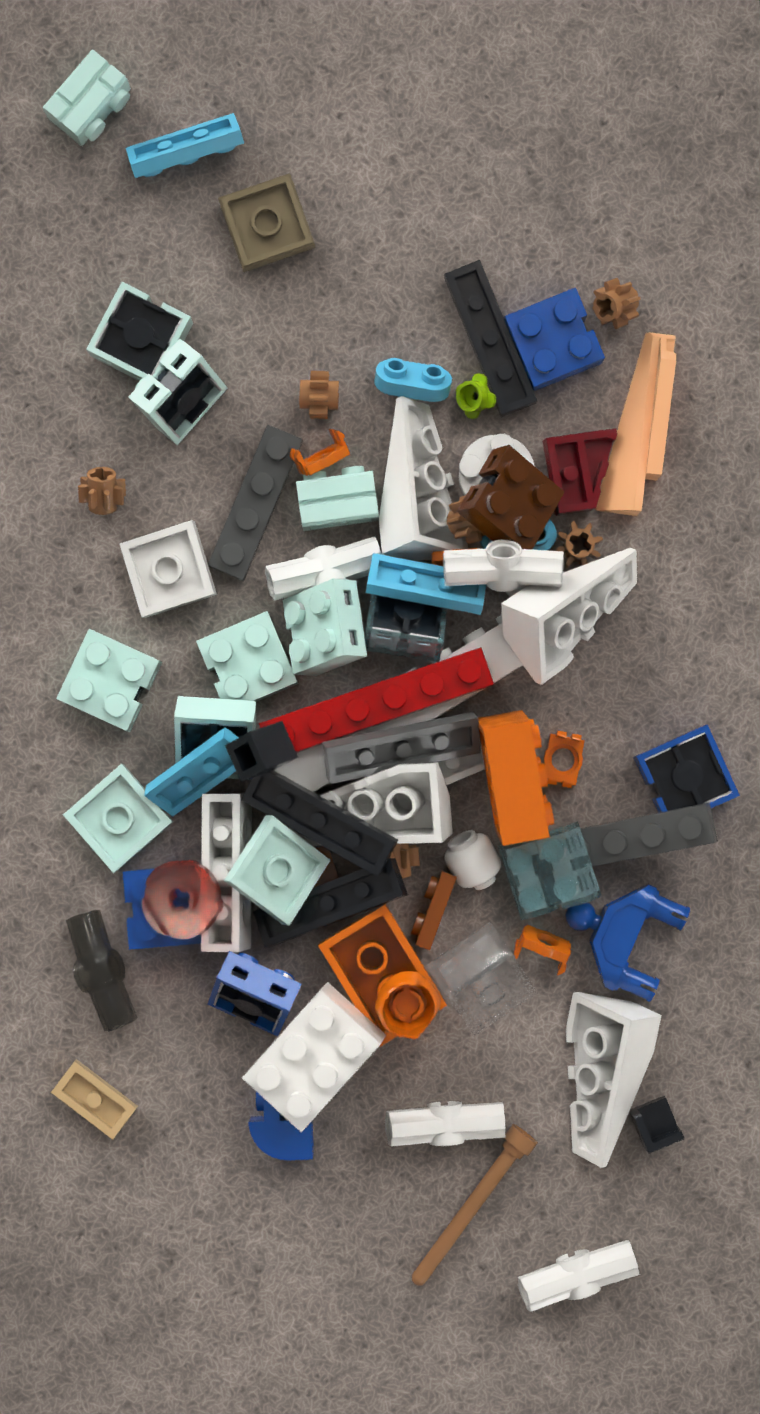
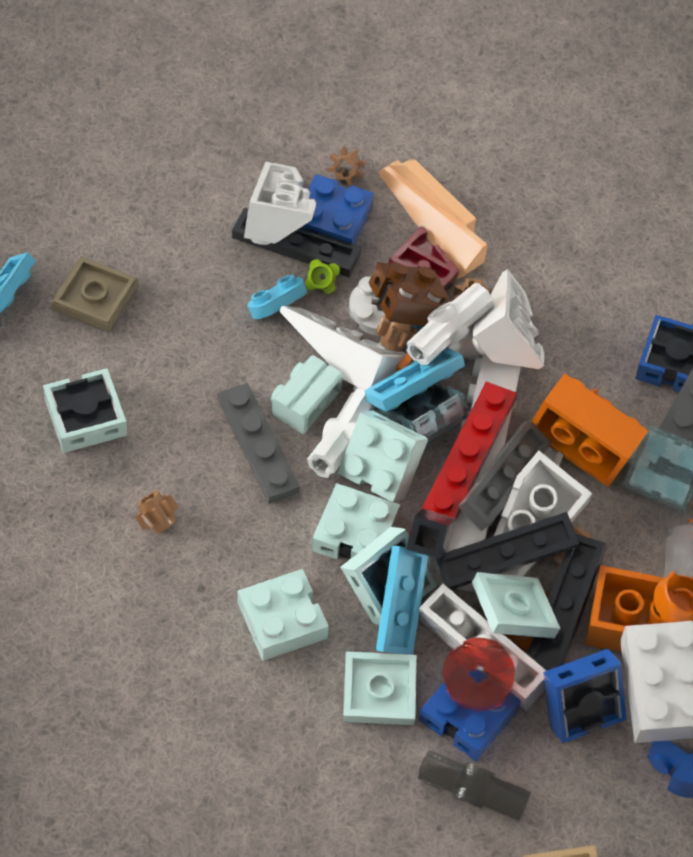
camera: 50 degrees left, 30 degrees down
(168, 569) = (247, 519): white plate -> none
(178, 391) = (145, 411): piece -> none
(319, 394) = (231, 349): medium nougat gear -> none
(323, 457) = (273, 377): orange piece -> none
(427, 924) = (625, 549): dark orange plate -> none
(472, 860) = (617, 508): white head -> none
(505, 291) = (278, 205): none -> white wedge

